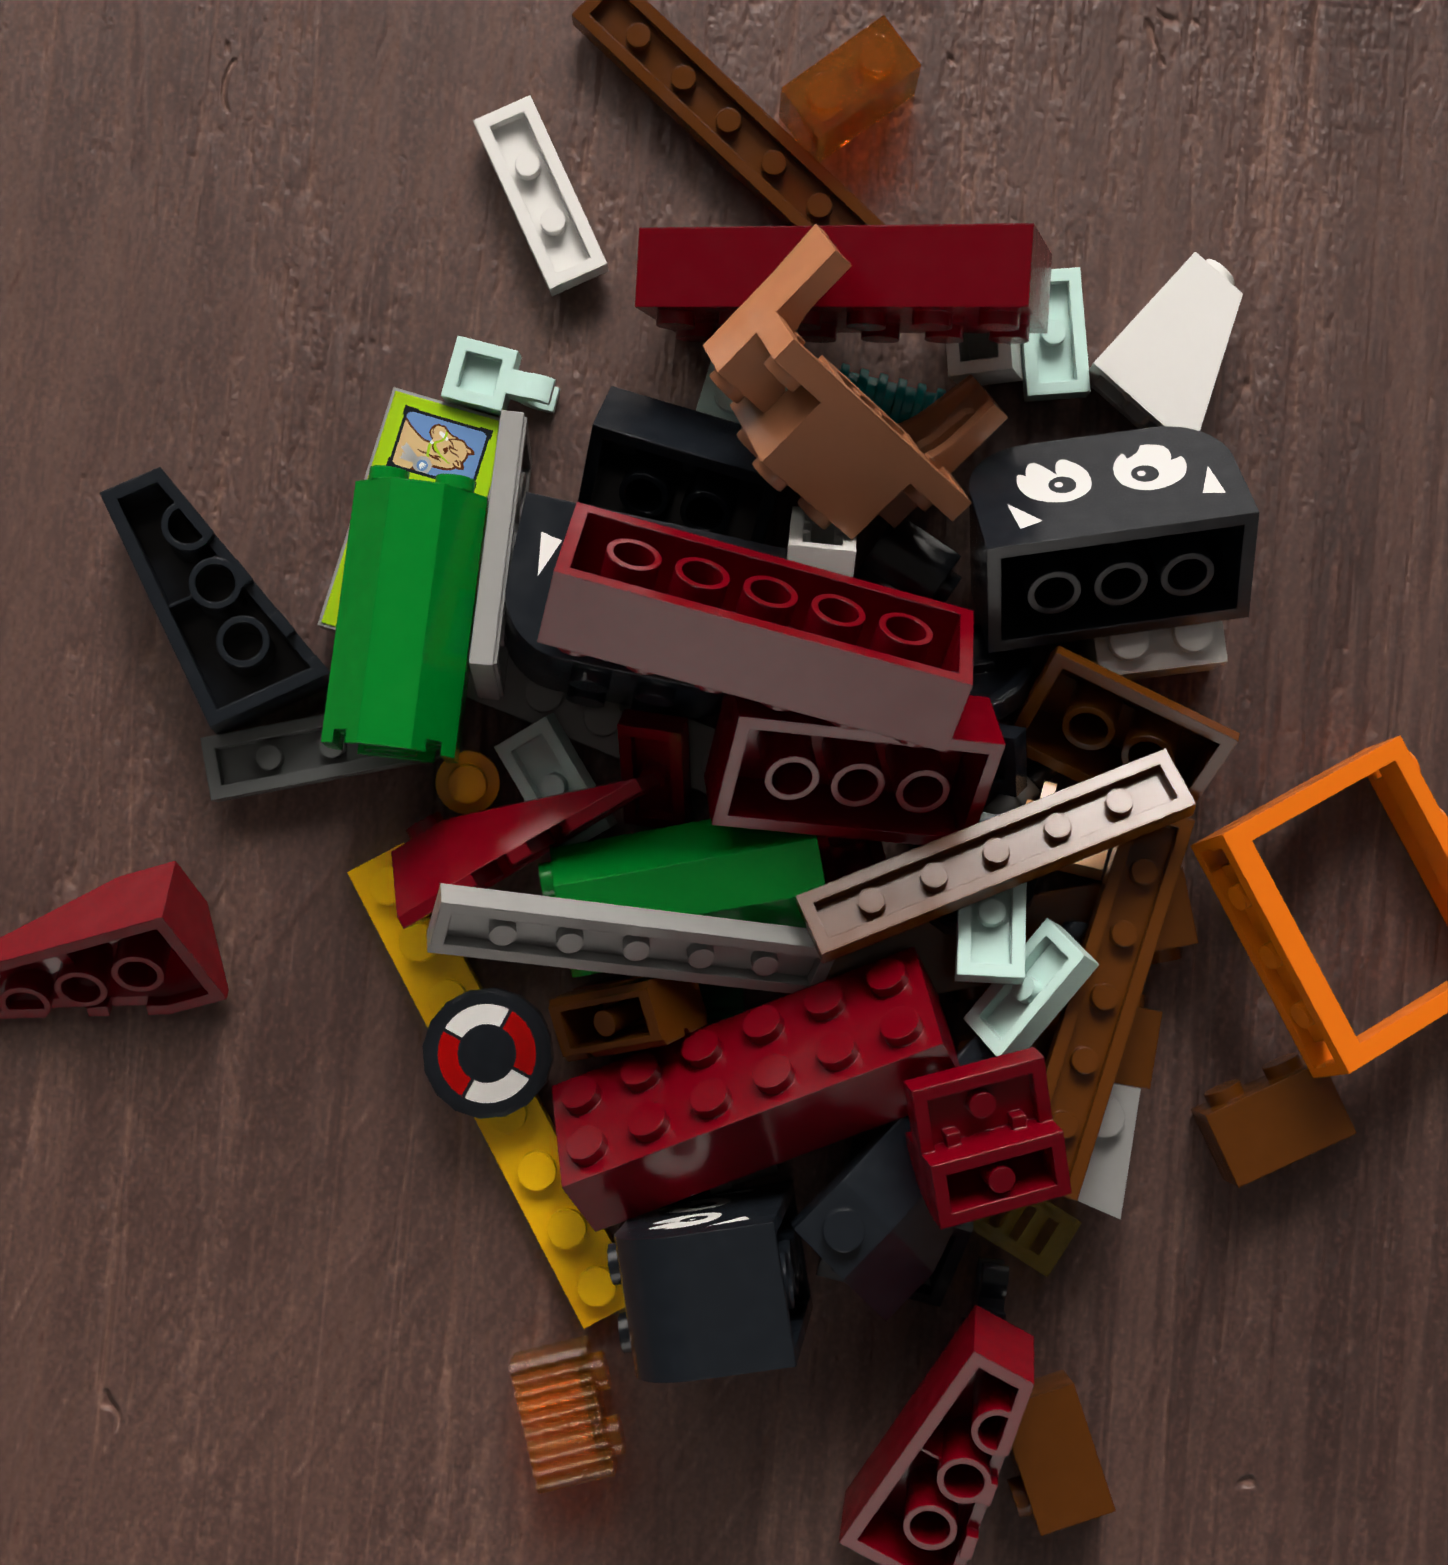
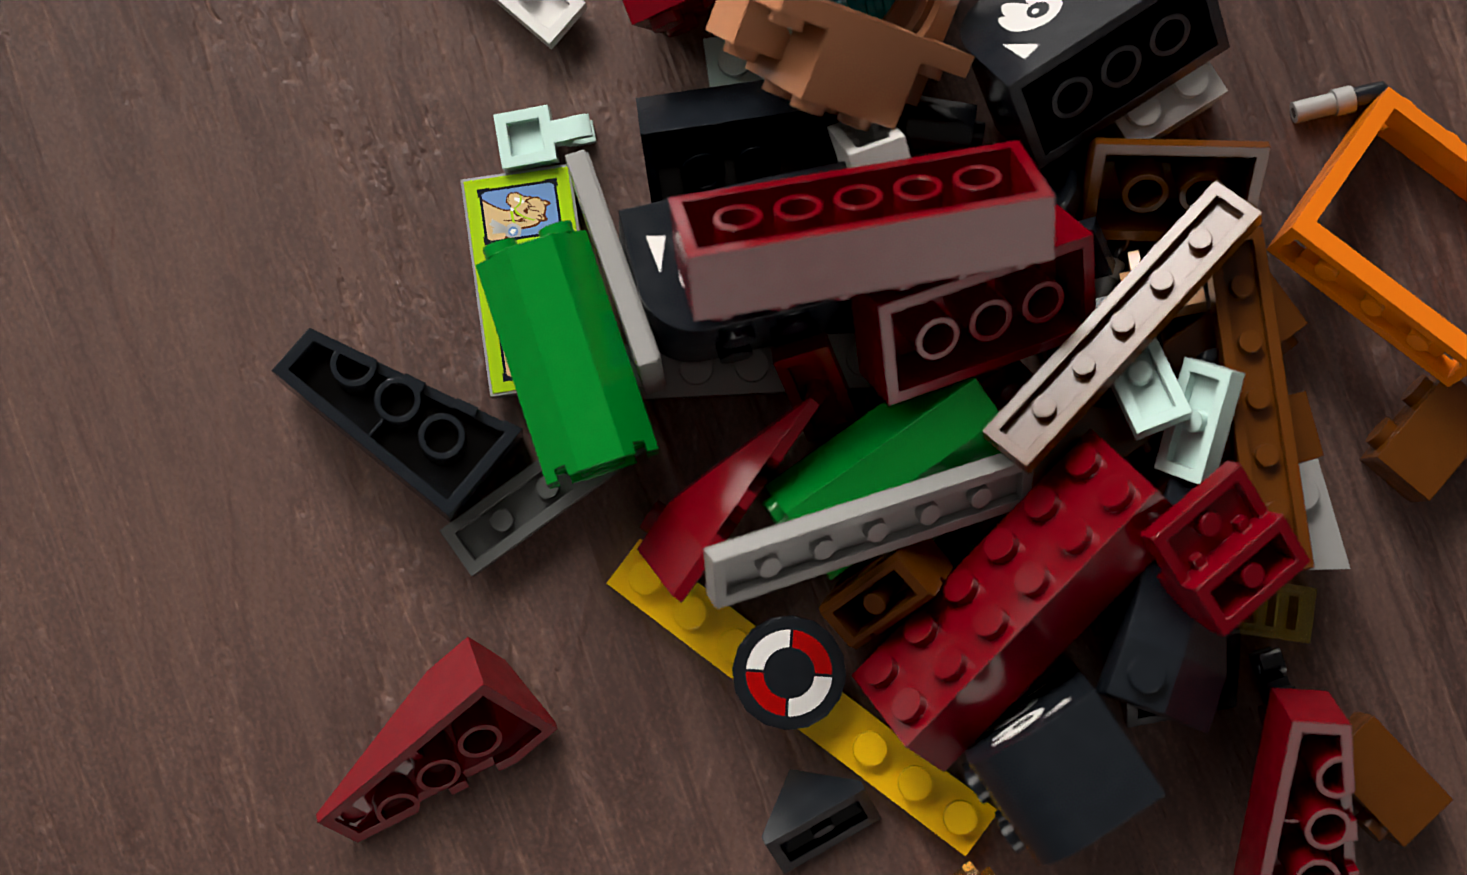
camera: 25 degrees left, 0 degrees up
(448, 1214) = (815, 815): none -> black slope
(468, 784) = (670, 469): light orange plate -> none
(547, 765) = (726, 422): light aqua plate -> none
(1342, 726) = (1336, 102): none -> light grey piece

